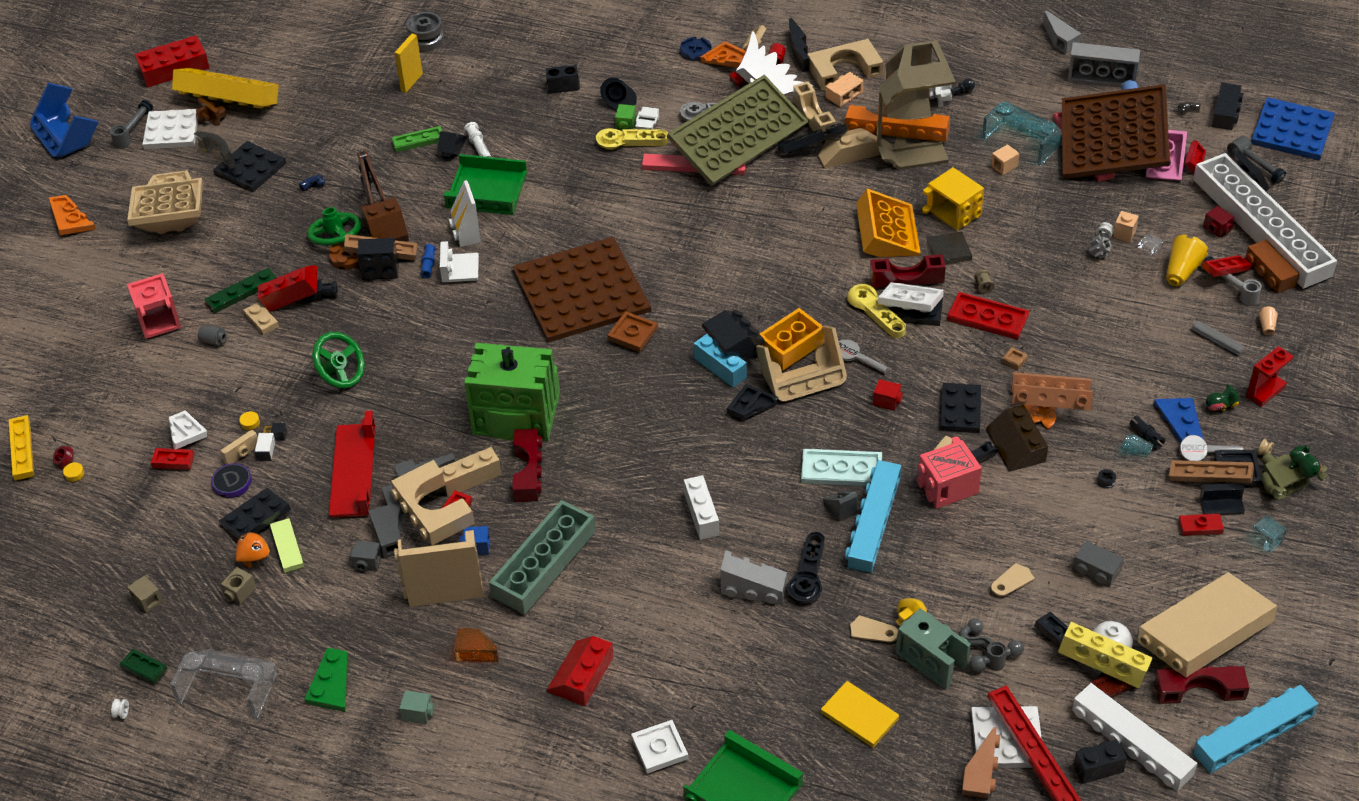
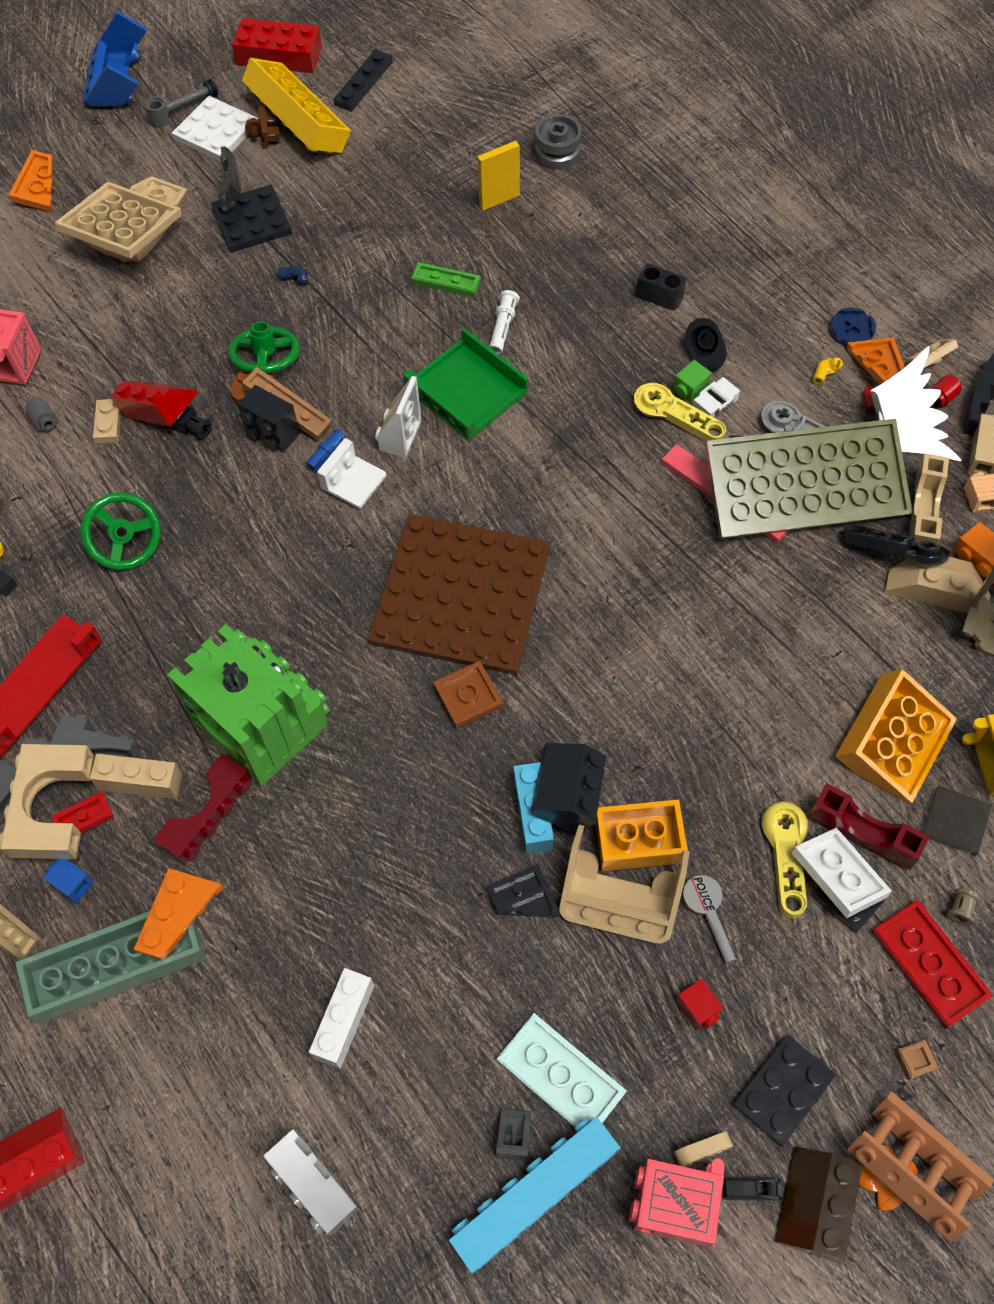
camera: 35 degrees right, 15 degrees up
(238, 291) = (116, 372): dark green plate -> none
(252, 56) = (363, 80): none -> black plate
(380, 217) = (320, 363): reddish brown slope -> none
(450, 143) = (471, 305): black slope -> none
(562, 505) = (174, 909): none -> orange wing
(698, 75) = (826, 368): none -> yellow arm
(808, 572) = (390, 1218): black beam -> none

